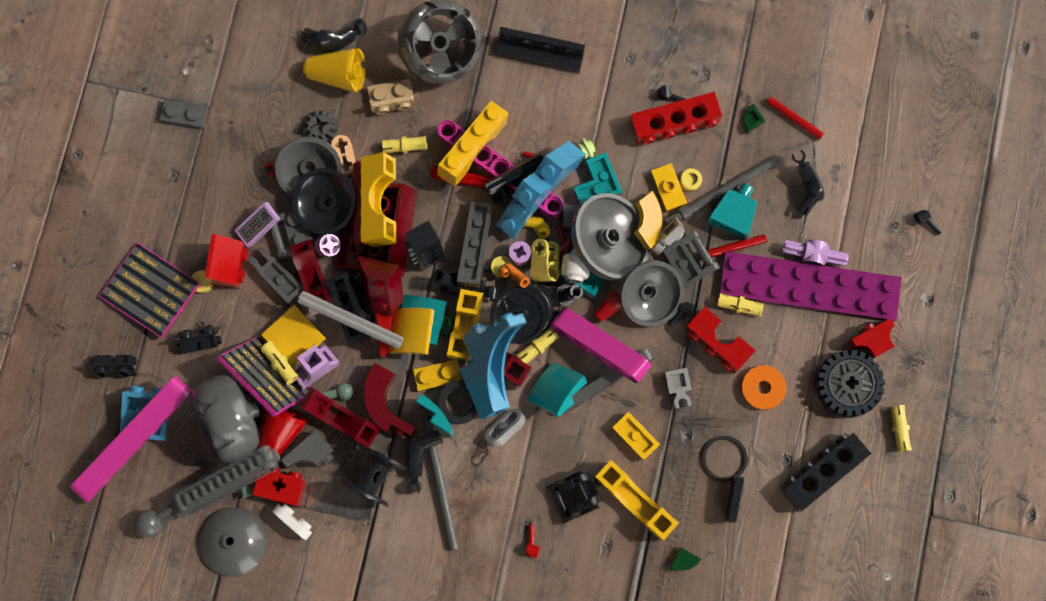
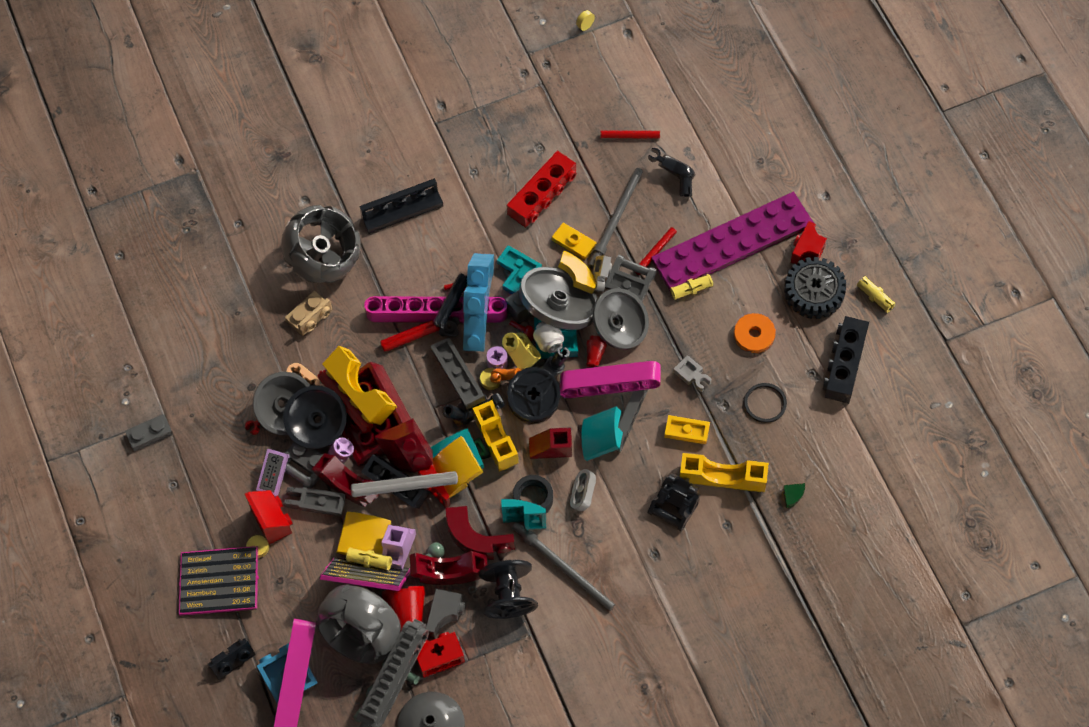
camera: 35 degrees left, 15 degrees down
(188, 339) = (280, 595): black hinge -> none
(300, 526) = (460, 672): white plate -> none
(329, 130) = (258, 371): dark grey gear -> none
(337, 40) = (231, 301): black arm -> none
(337, 69) = (250, 319): yellow cone -> none
(404, 144) = (347, 339): light yellow pin -> none
(415, 455) = (528, 553): black arm -> none
(424, 246) = (422, 392): black brick -> none
(437, 375) = (499, 489): yellow plate -> none
(481, 131) = (400, 302): yellow arch -> none
(486, 369) = (537, 454): dark azure arch -> none
(532, 550) = (672, 566): red hand -> none
(538, 345) = (563, 415): light yellow pin -> none
(539, 226) = (496, 330): yellow arm -> none
(587, 147) = (491, 249): yellowish green plate -> none
(665, 94) = (520, 178): black hand -> none
(686, 308) = (654, 315): black hand -> none
(690, 179) = (586, 225): light yellow tile -> none
(703, 330) = (712, 325): red arch -> none
(734, 499) = (795, 423): black tile -> none
(735, 212) = (638, 225): teal torso -> none
(752, 119) = (599, 155): dark green tile -> none
(815, 252) = (718, 214): lavender axle -> none
(925, 216) = (777, 139): black hand -> none

